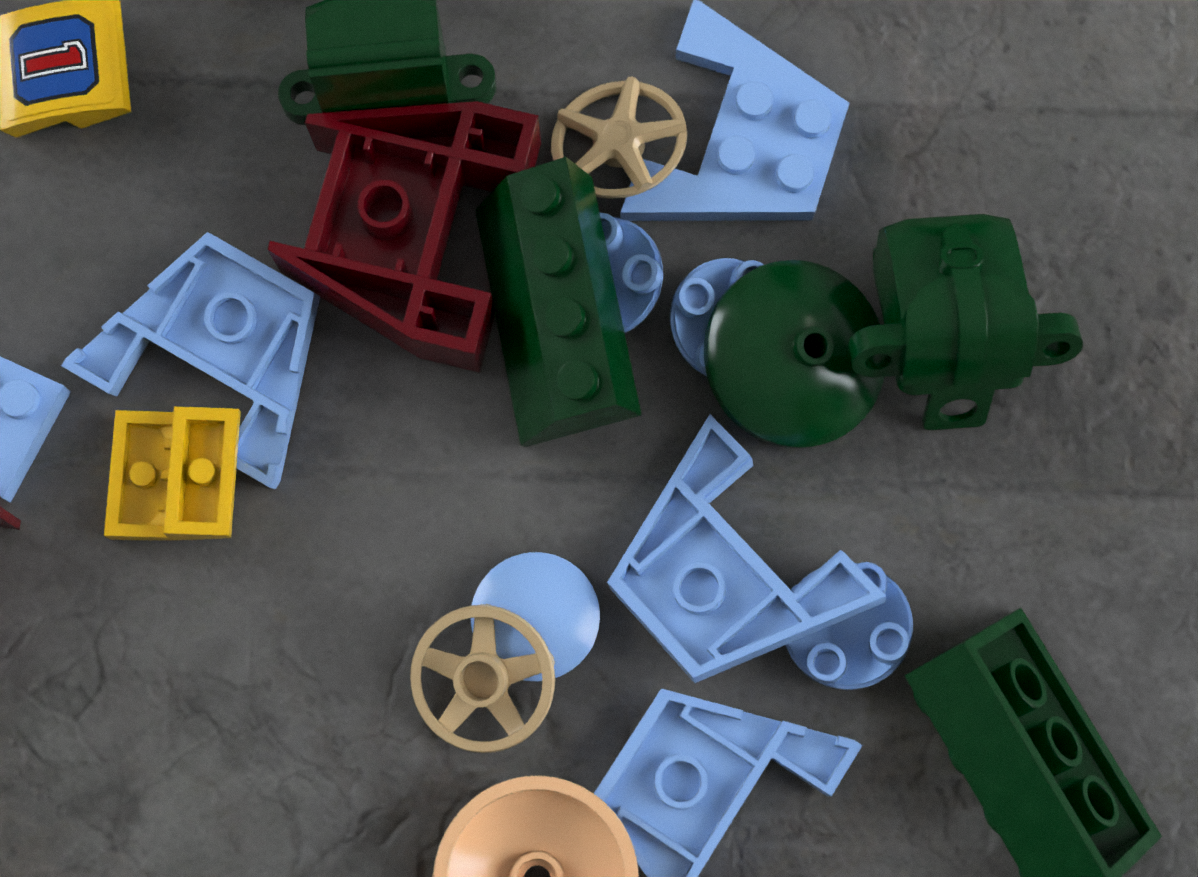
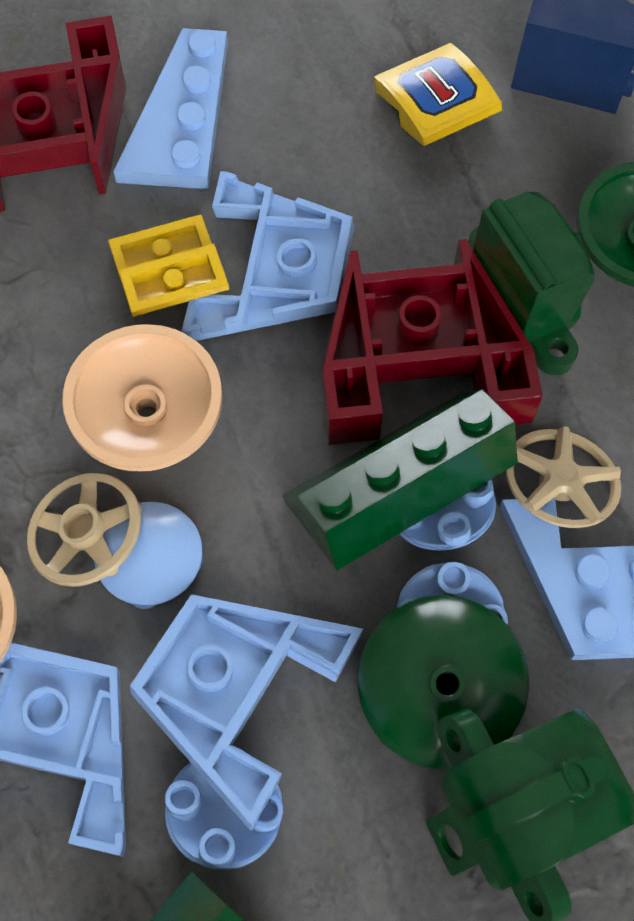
camera: 70 degrees right, 10 degrees down
(322, 521) = (136, 371): none -> light nougat dish

